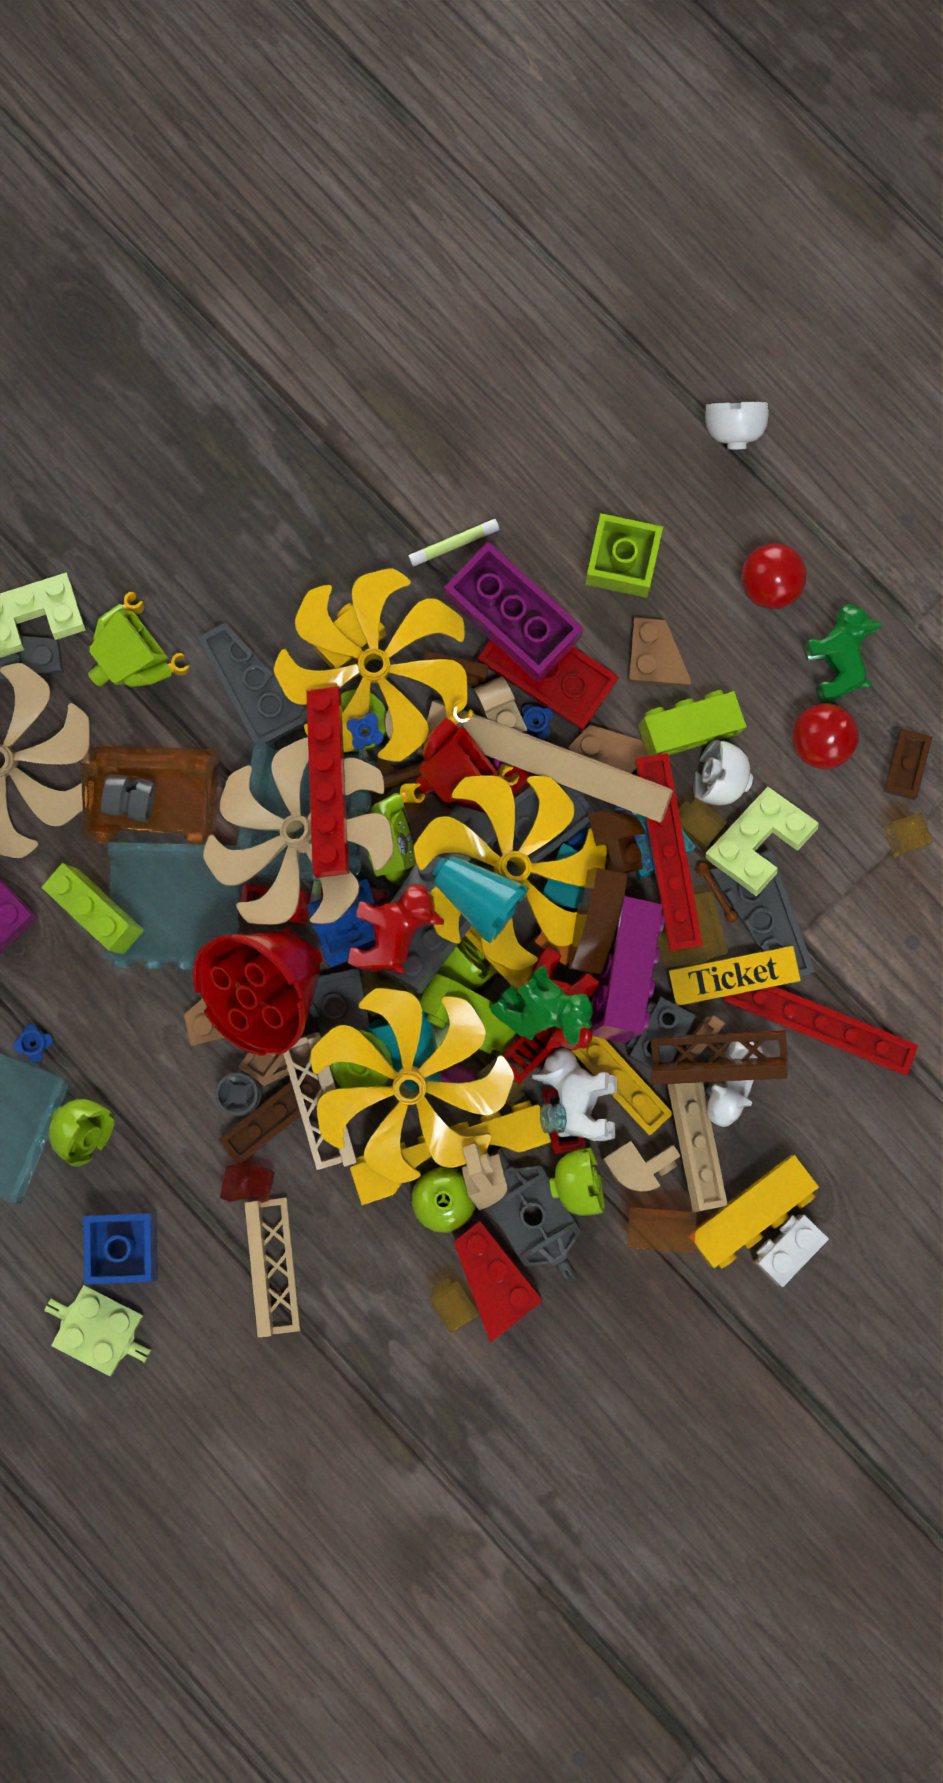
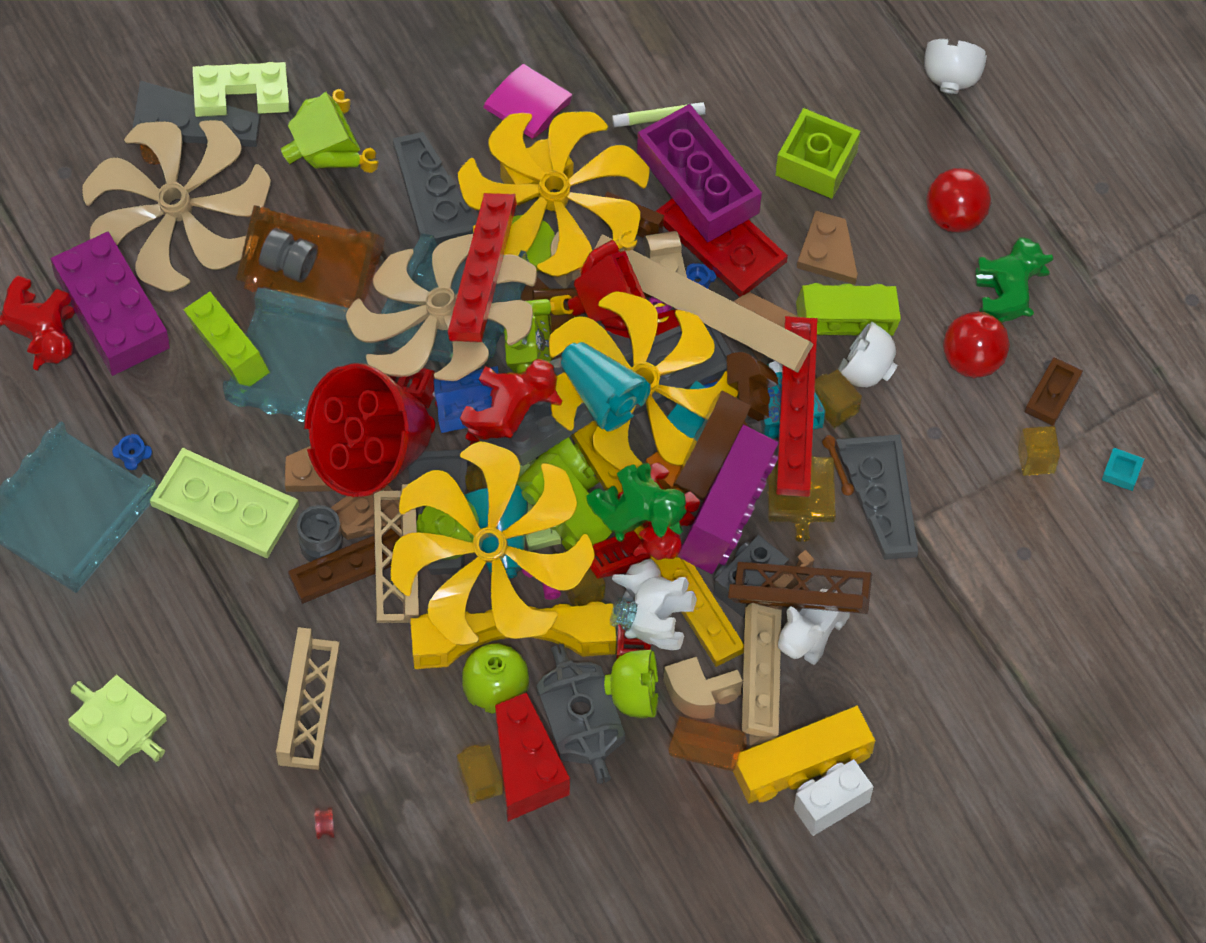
camera: 10 degrees right, 20 degrees down
(78, 1130) = (156, 532): lime cylinder -> none
(120, 1248) = (163, 643): blue brick -> none
(137, 1078) = (224, 503): none -> yellowish green plate
(247, 1181) = (303, 612): clear red bracket -> none
(320, 558) = (528, 93): none -> dark pink slope
(321, 1390) = (324, 822): none -> clear red bush
(373, 735) = (530, 247): blue plate -> none
(483, 1177) = (542, 653): tan brick -> none
(734, 975) = (837, 536): yellow sticker -> none
(736, 848) = (868, 425): yellowish green plate -> none
(828, 1027) = (916, 602): red plate -> none

